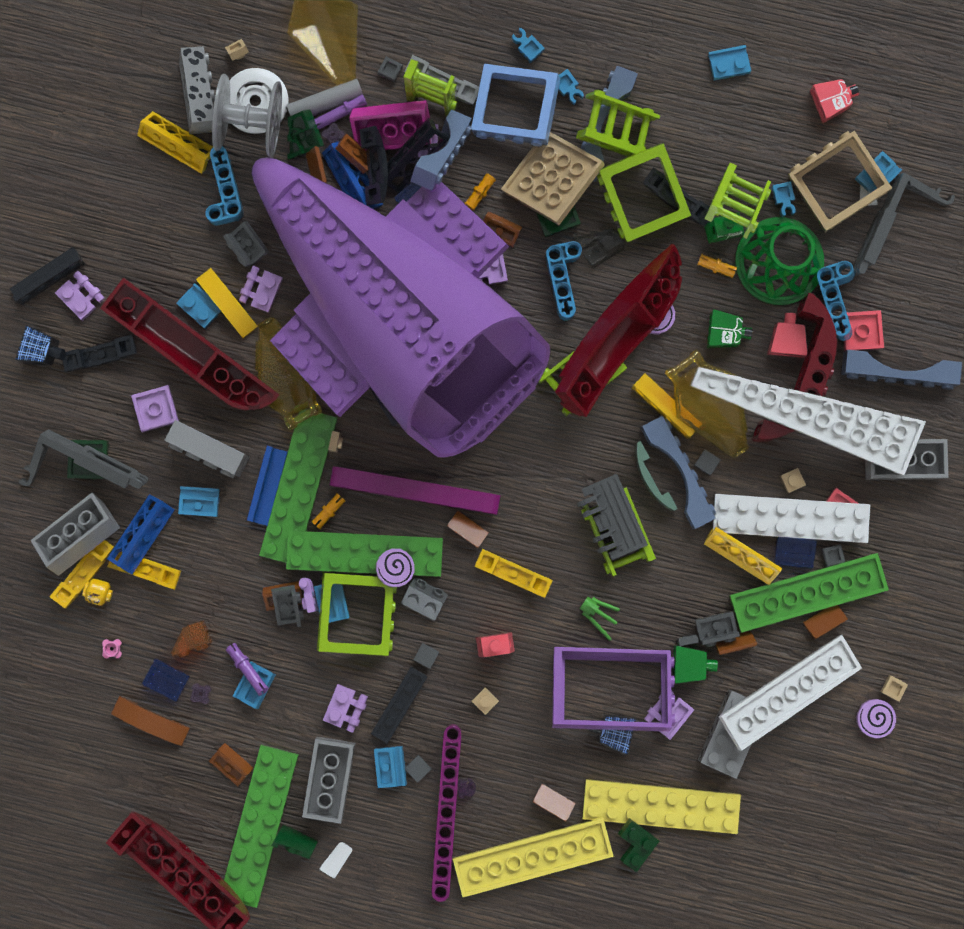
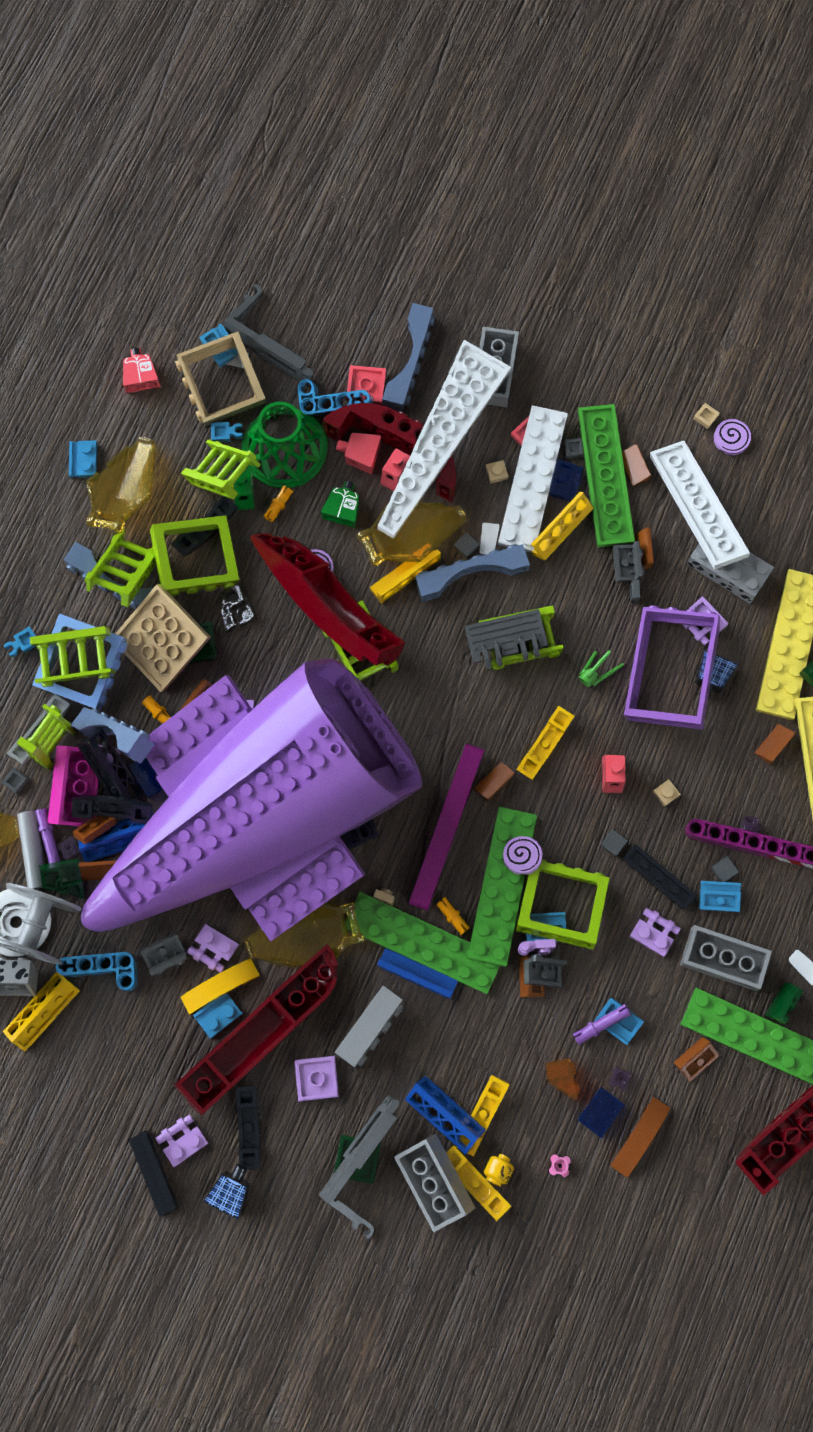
camera: 75 degrees left, 10 degrees down
(199, 501) = (421, 1047): dark azure plate -> none
(424, 598) = (557, 834): dark grey bracket -> none
(534, 98) = (60, 639): none -> lime fence
(563, 282) = (265, 645): dark azure beam -> none
(568, 86) = (72, 610): dark azure plate -> none
(641, 456) = (451, 605): sand green slope -> none
(691, 664) = (659, 591): green torso -> none
(706, 107) = (122, 486): none -> clear yellow windscreen
(722, 484) = (488, 537): none -> white sticker
(773, 375) = (394, 467): none -> coral torso

